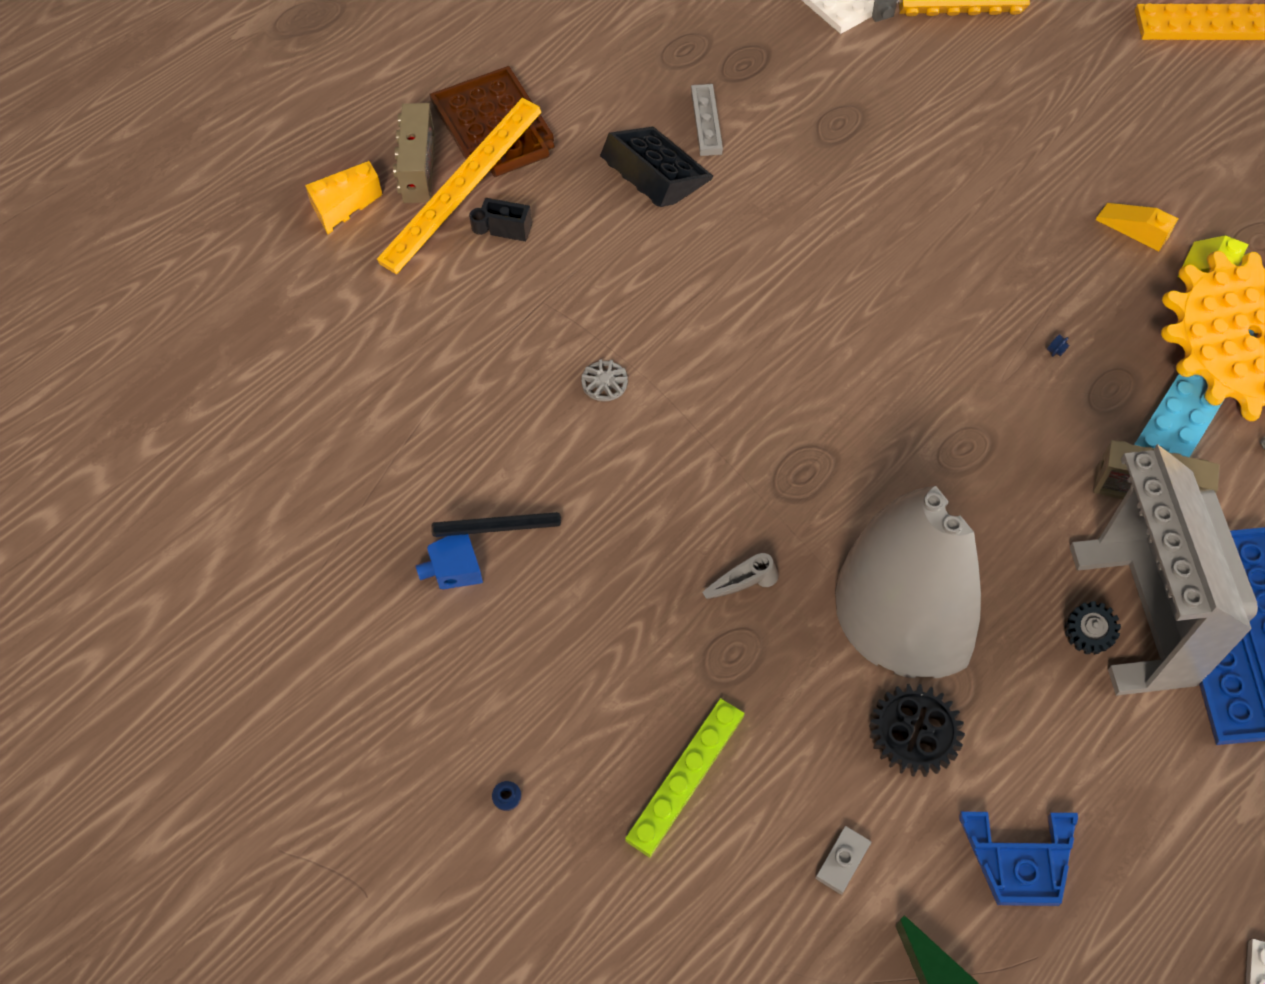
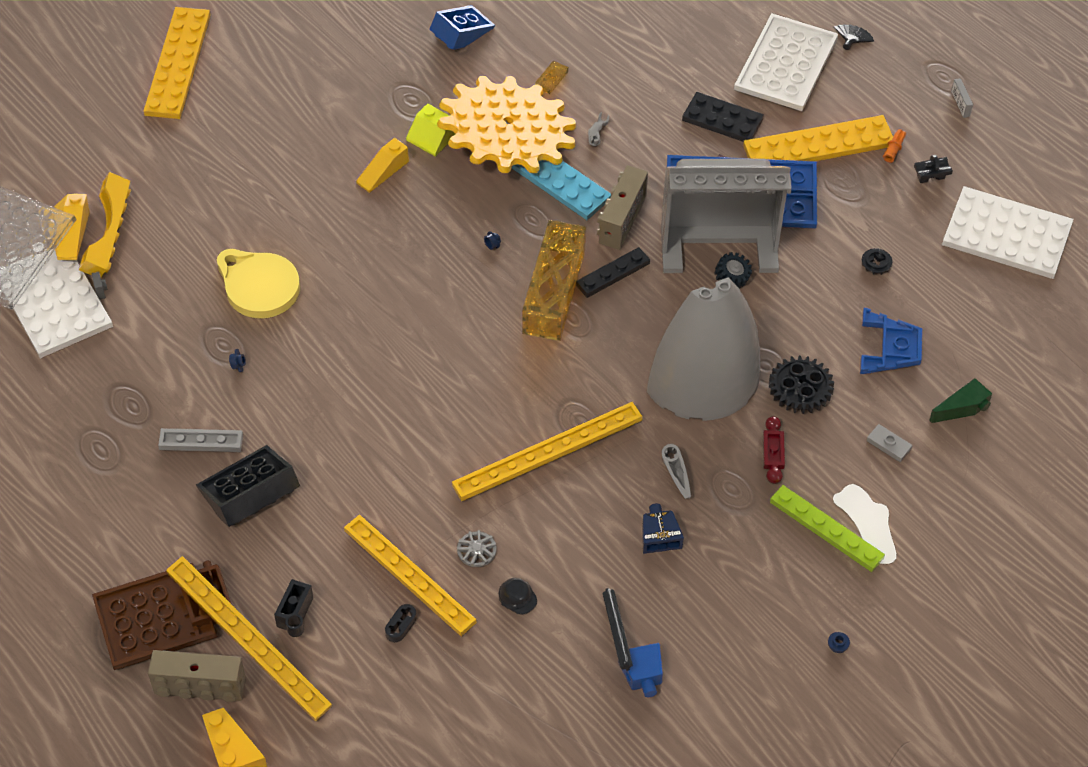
camera: 85 degrees left, 5 degrees down
(500, 320) = (404, 626): none -> black beam
(546, 427) = (517, 596): none -> black hat
(558, 321) = (410, 575): none -> yellow plate
(650, 566) = (660, 531): none -> dark blue torso
(711, 837) = (869, 518): none -> white sticker
(753, 440) = (546, 451): none -> yellow plate
(799, 698) = (773, 450): none -> dark red plate
(813, 127) = (237, 360): none -> dark blue plate
(926, 137) = (259, 282): none -> light yellow piece
(1049, 413) = (536, 316): none -> clear yellow piece
(1051, 485) = (612, 272): none -> black plate
(1180, 821) = (879, 255): none -> black gear

